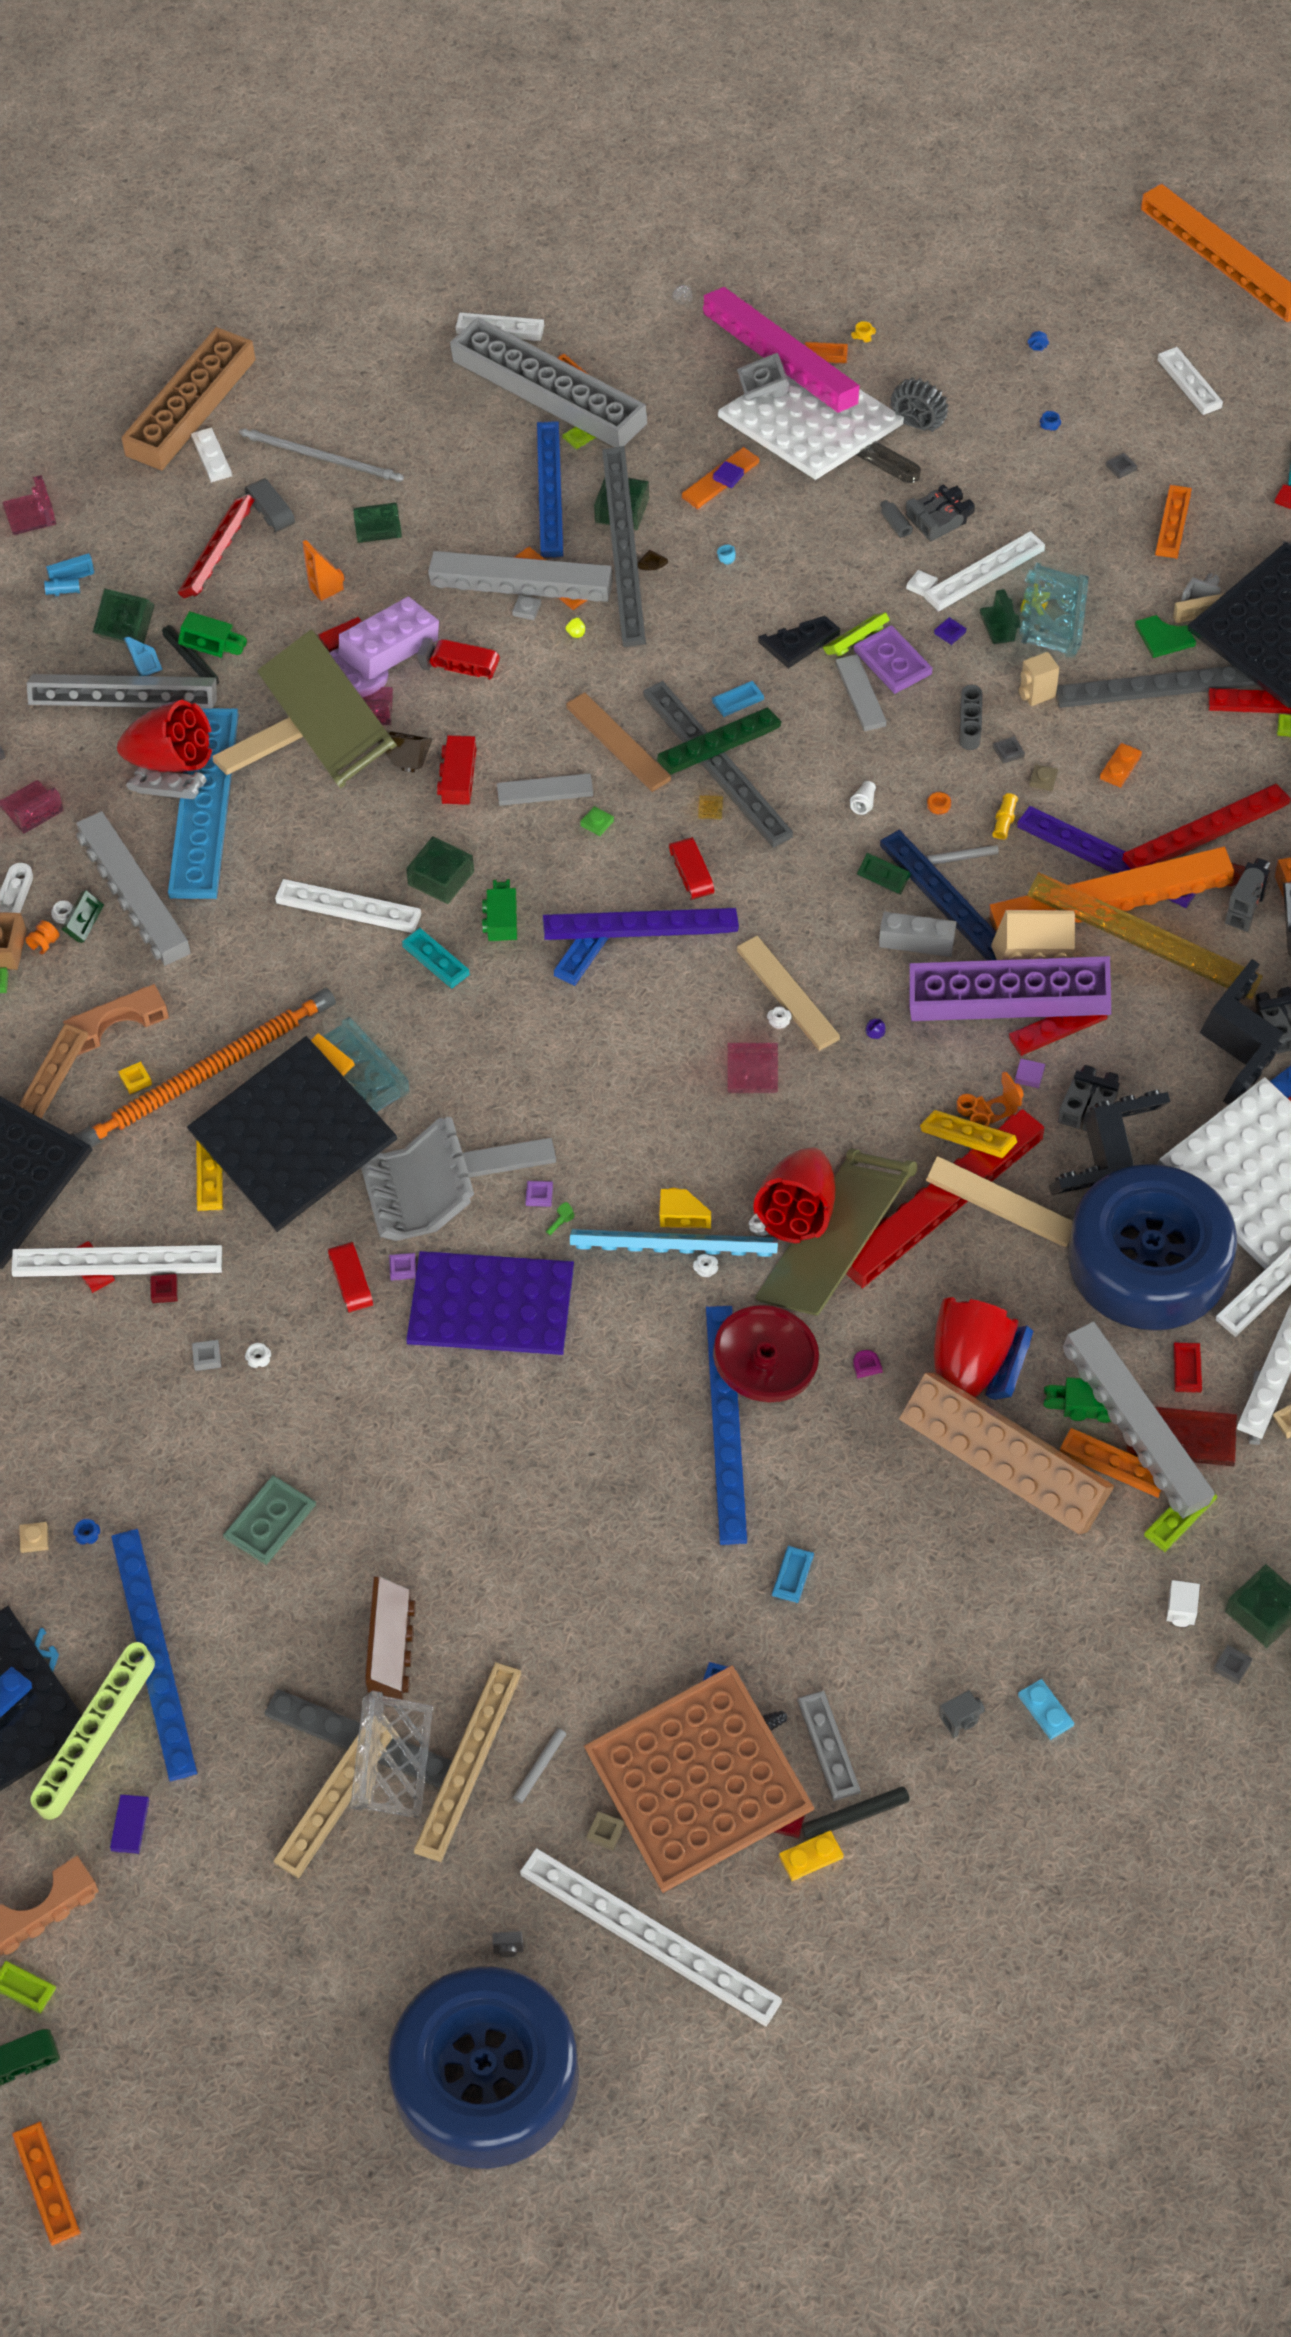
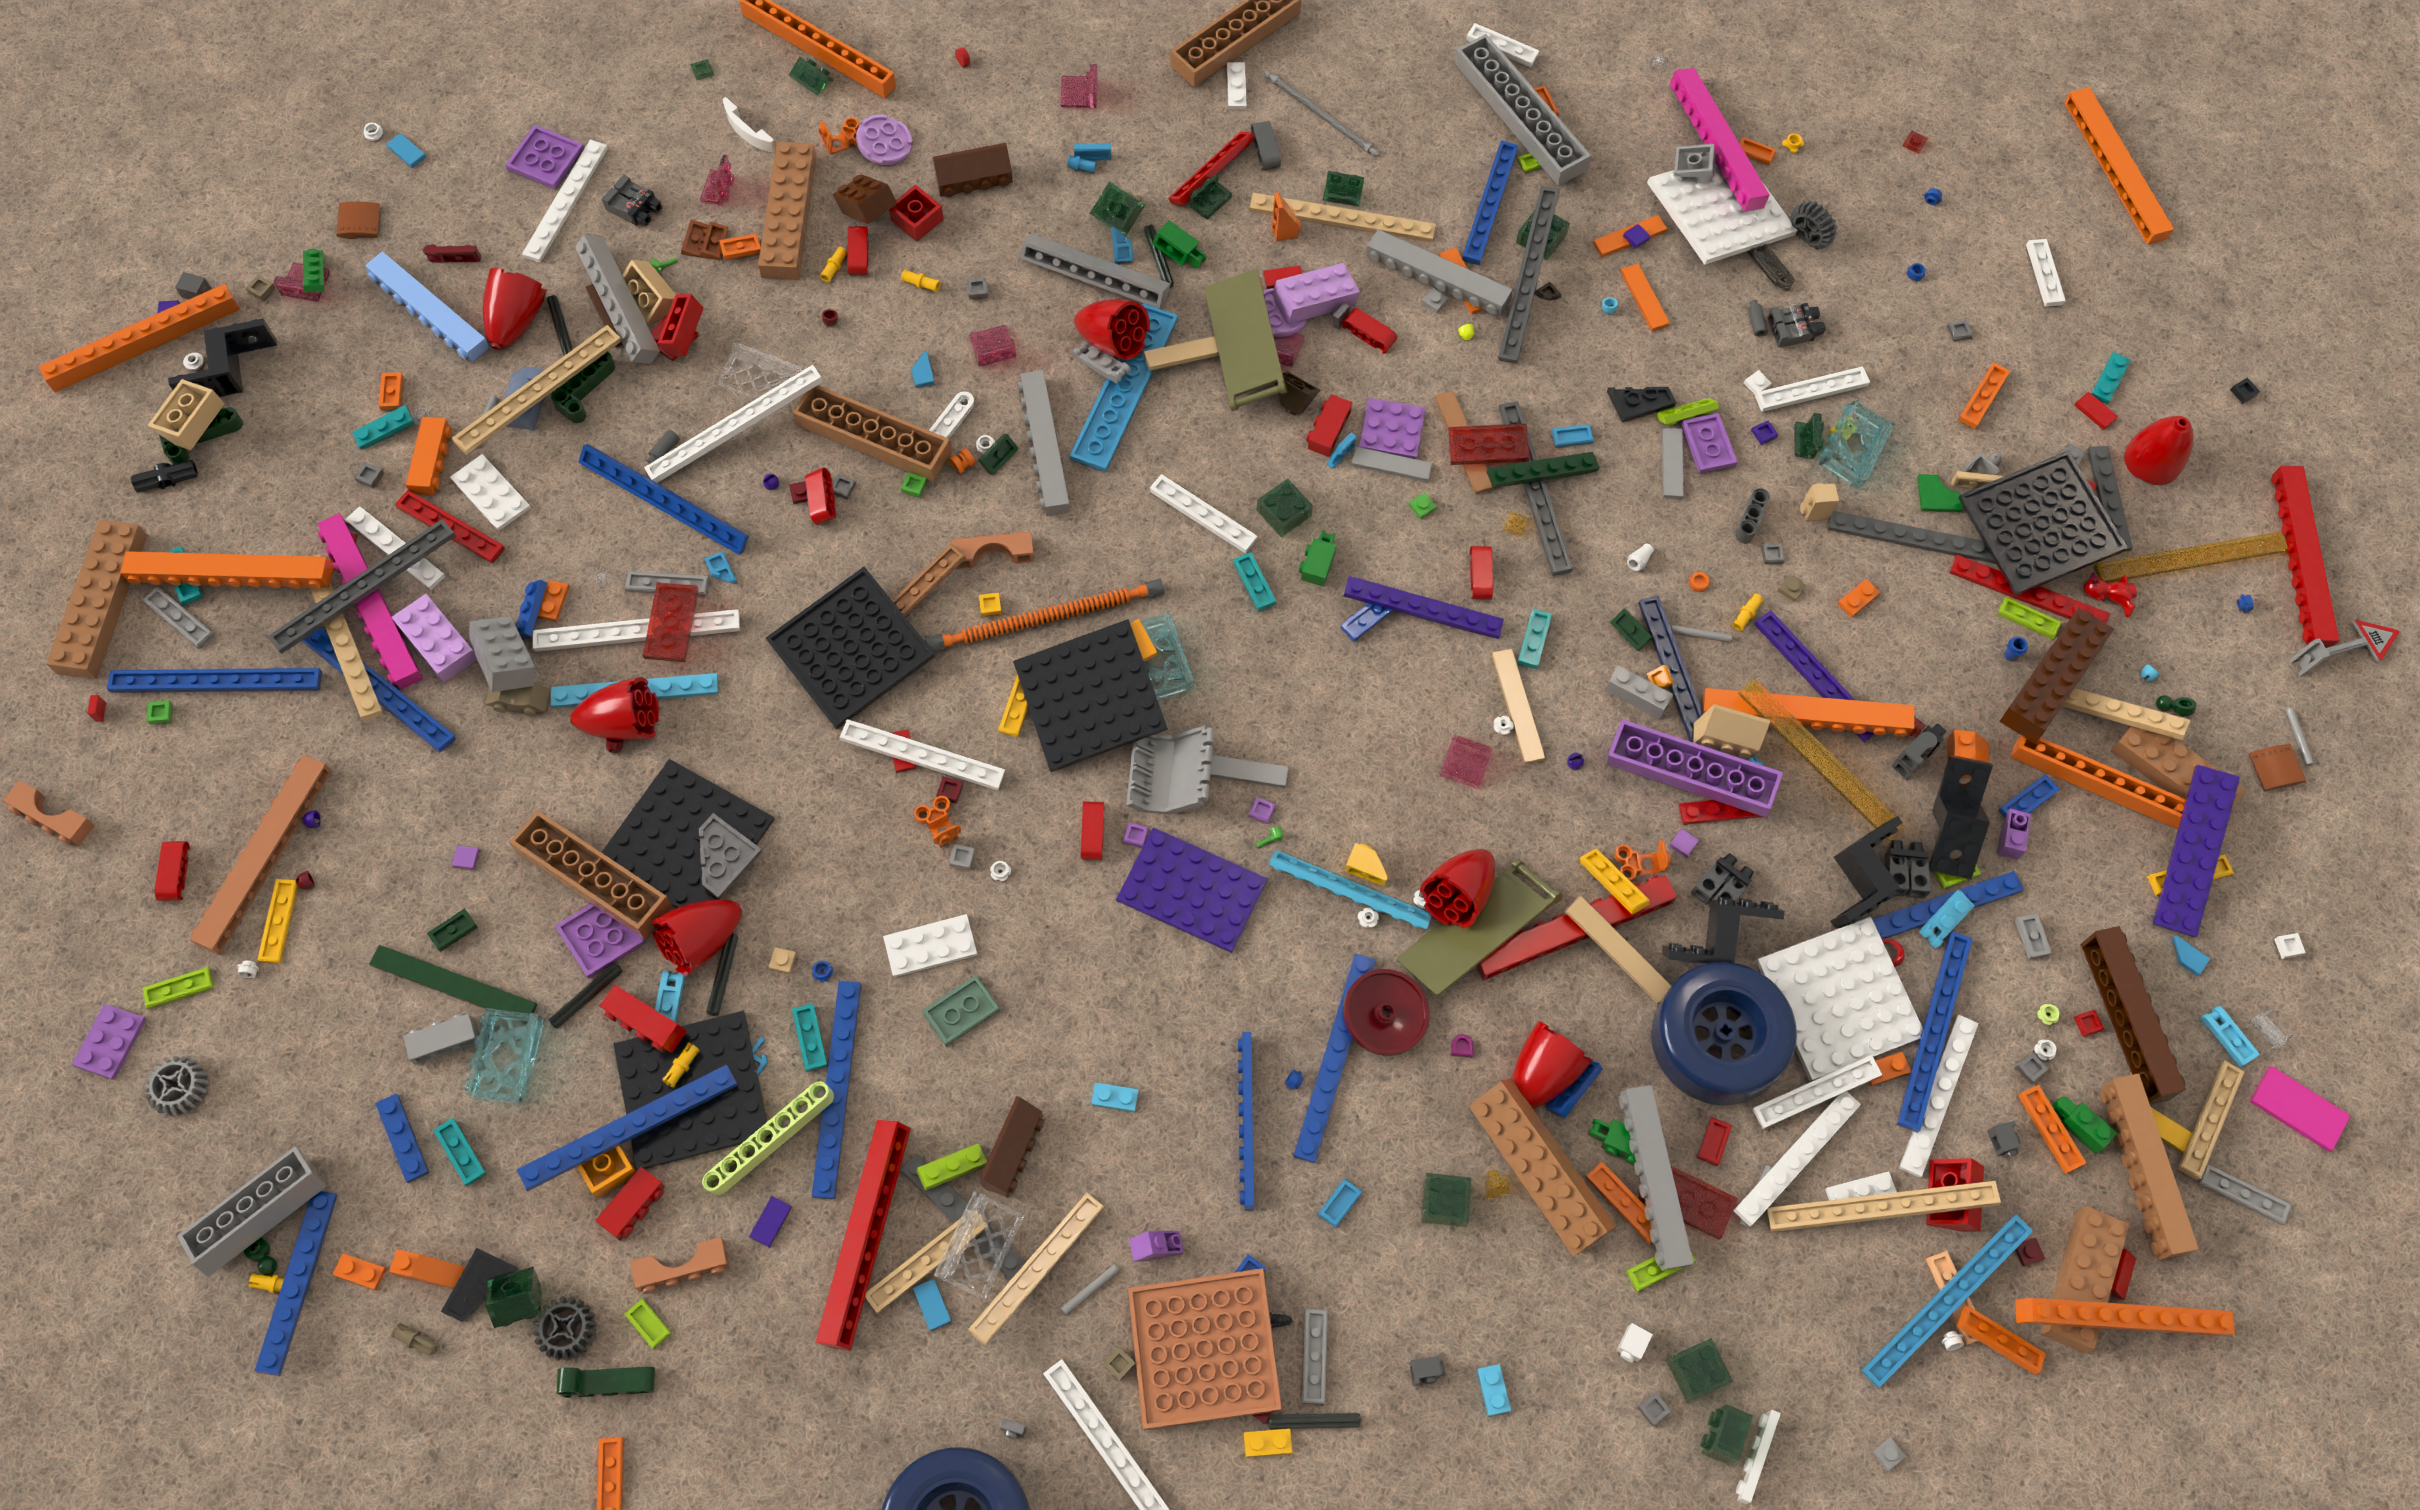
camera: 15 degrees right, 10 degrees up
(99, 1608) = (809, 1037): none -> teal plate
(162, 1324) = (936, 819): none -> orange piece
(205, 1463) = (930, 945): none -> white plate
(226, 577) = (1209, 197): none -> clear green bracket
(248, 1797) = (863, 1235): none -> brick
(325, 1688) = (951, 1167): none -> lime plate
(359, 1846) = (932, 1305): none -> dark azure tile
(393, 552) = (1348, 218): none -> tan plate
(483, 791) = (1342, 450): none -> dark azure tile
(487, 1551) = (1114, 1097): none -> medium azure plate
(531, 751) = (1392, 428): none -> medium lavender plate
(598, 1689) = (1156, 1245): none -> medium lavender slope
(647, 733) = (1488, 444): none -> clear red plate
(654, 1532) = (1246, 1130): none -> blue plate
(689, 1461) = (1294, 1079): none -> blue plate
(762, 534) = (1645, 297): none -> orange tile
(779, 917) = (1534, 638): none -> teal plate
(912, 1527) = (1446, 1200): none -> clear green brick
(936, 909) = (1661, 677): none -> light orange tile
(963, 1493) = (1496, 1185): none -> clear yellow tile
(996, 293) = (1915, 142): none -> clear red plate
(1208, 827) = (1907, 679): red plate -> none

